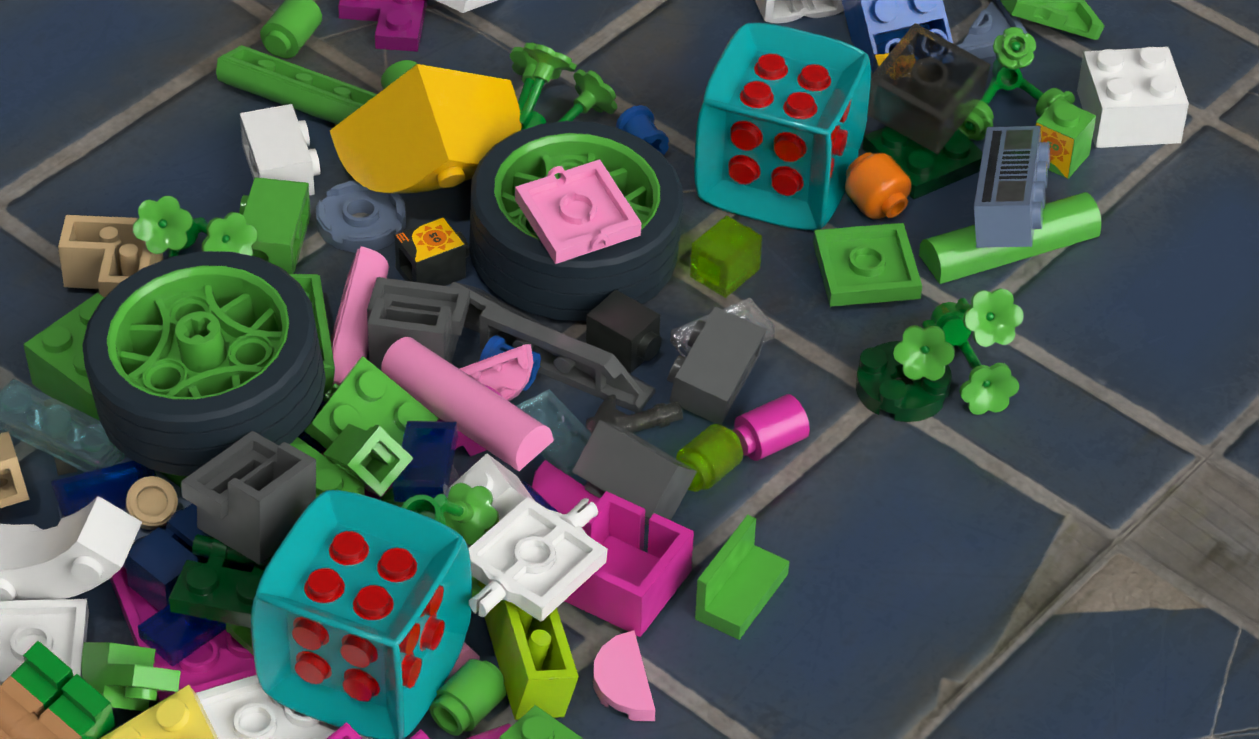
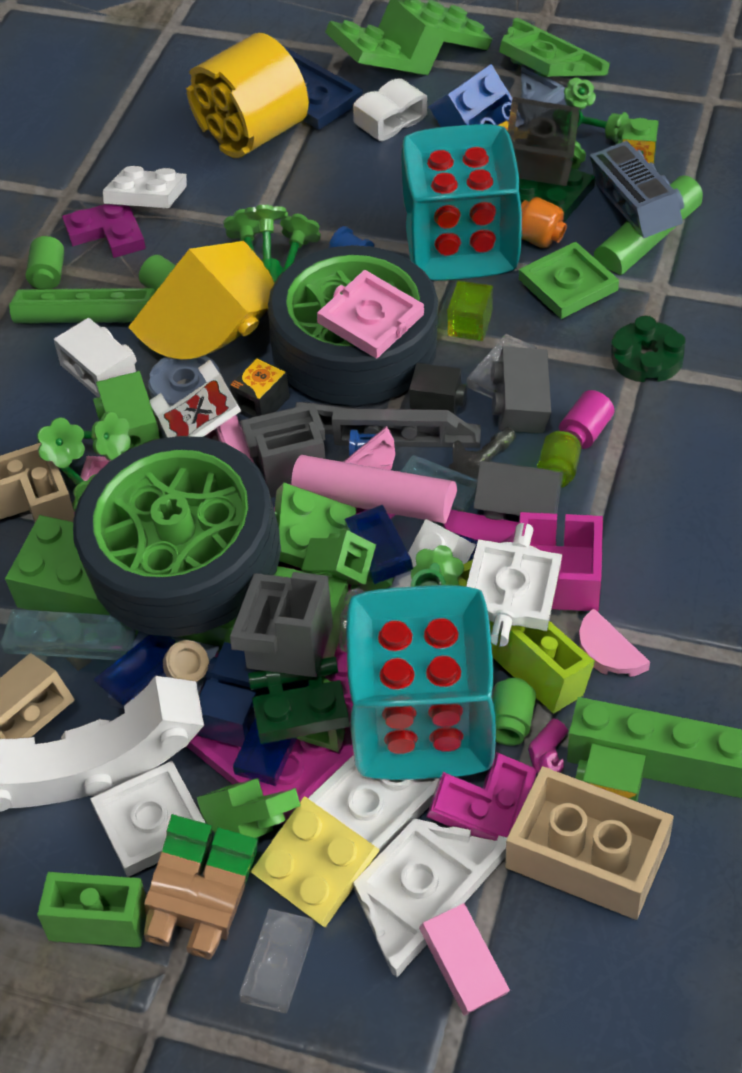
camera: 20 degrees left, 5 degrees up
(343, 250) = (200, 410): none -> white flag
(738, 582) = (643, 543): bright green panel -> none
(930, 347) = (664, 320): bright green plant -> none
(1133, 96) = (665, 95): white brick -> none

